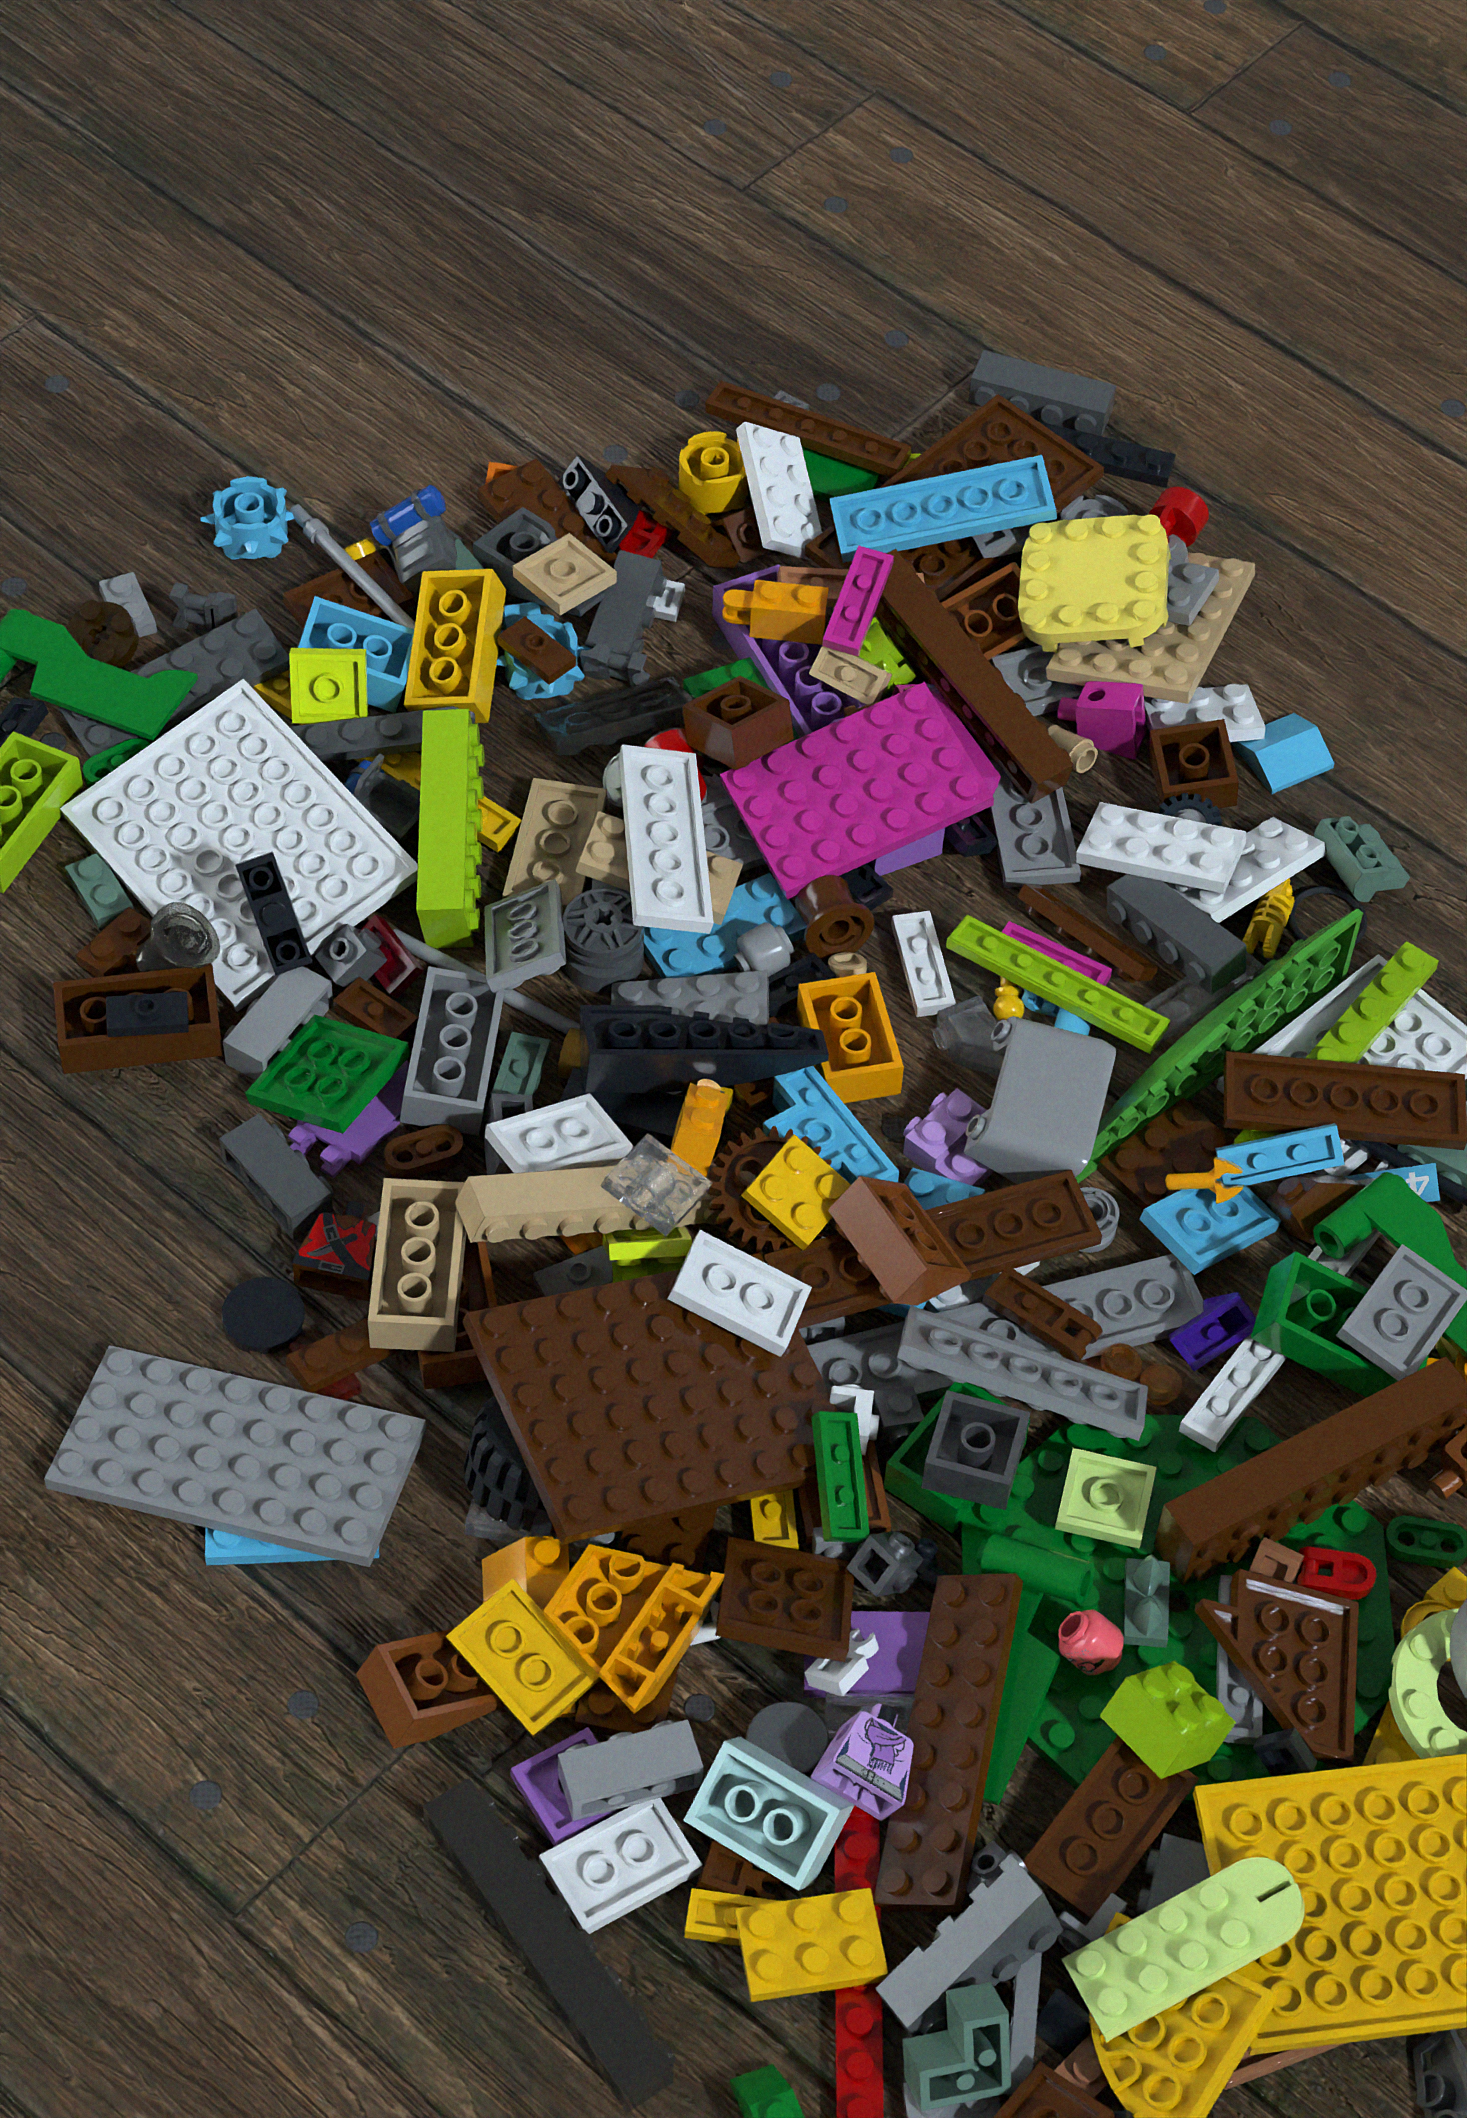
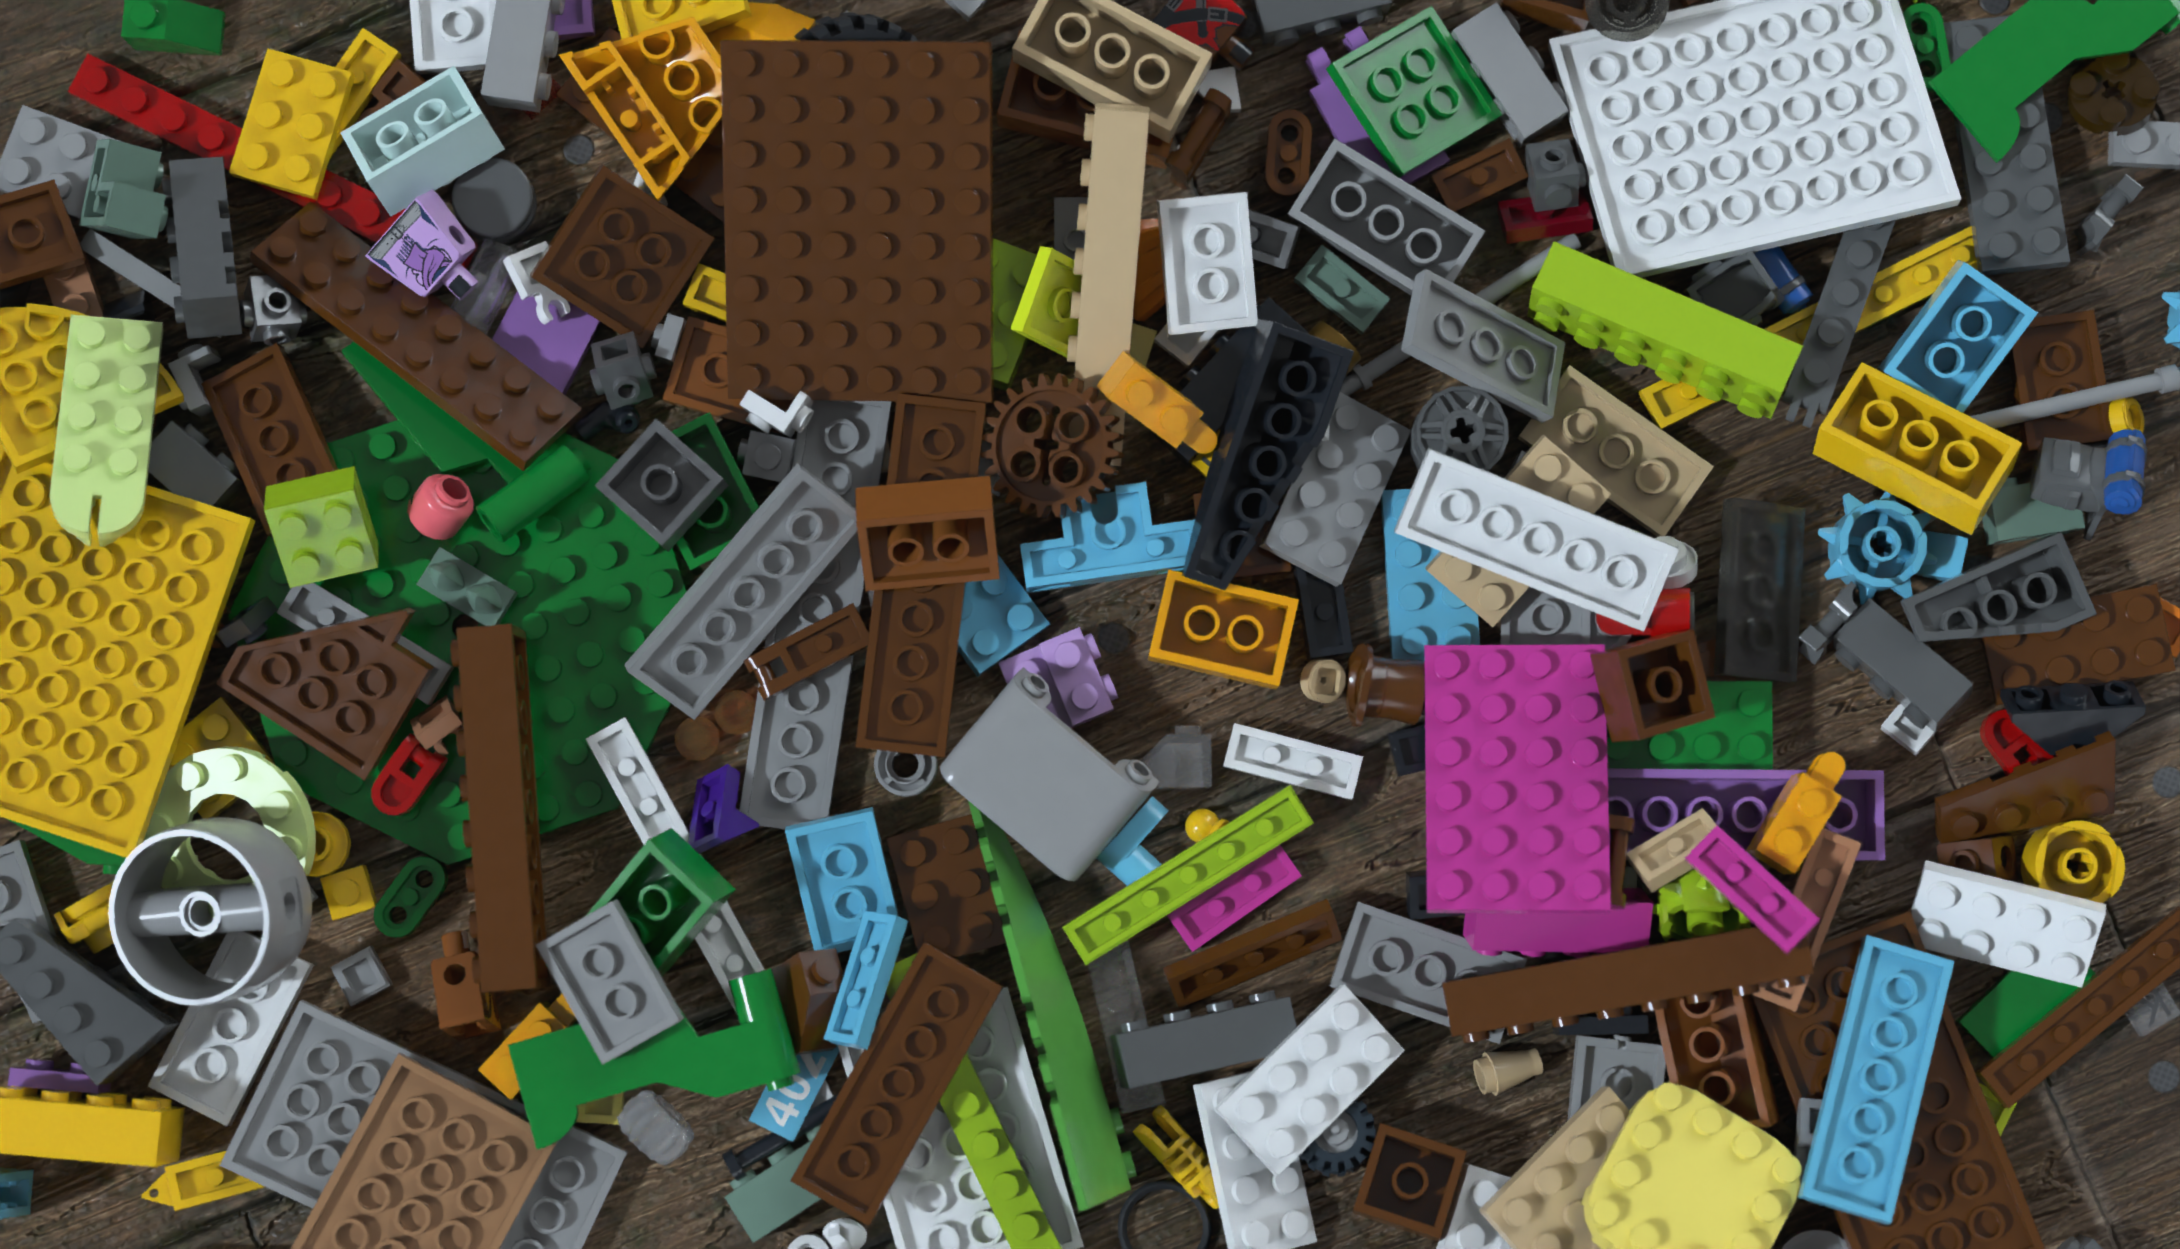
camera: 115 degrees right, 30 degrees up
(274, 913) = (1615, 101): black slope -> none
(328, 684) = (1912, 285): neon yellow plate -> none
(537, 650) = (1866, 528): reddish brown plate -> none
(564, 574) = (1957, 601): tan plate -> none
(656, 1184) = (1090, 318): clear plate -> none
(740, 1293) = (931, 342): white plate -> none
(763, 949) = (1371, 595): light grey head -> none
(796, 1192) = (1027, 459): yellow plate -> none
(840, 1477) = (707, 355): green plate -> none
(1106, 1498) = (585, 606): yellowish green plate -> none
(1109, 716) = (1511, 1138): dark pink torso -> none
(1208, 1180) = (869, 909): light orange bar -> none

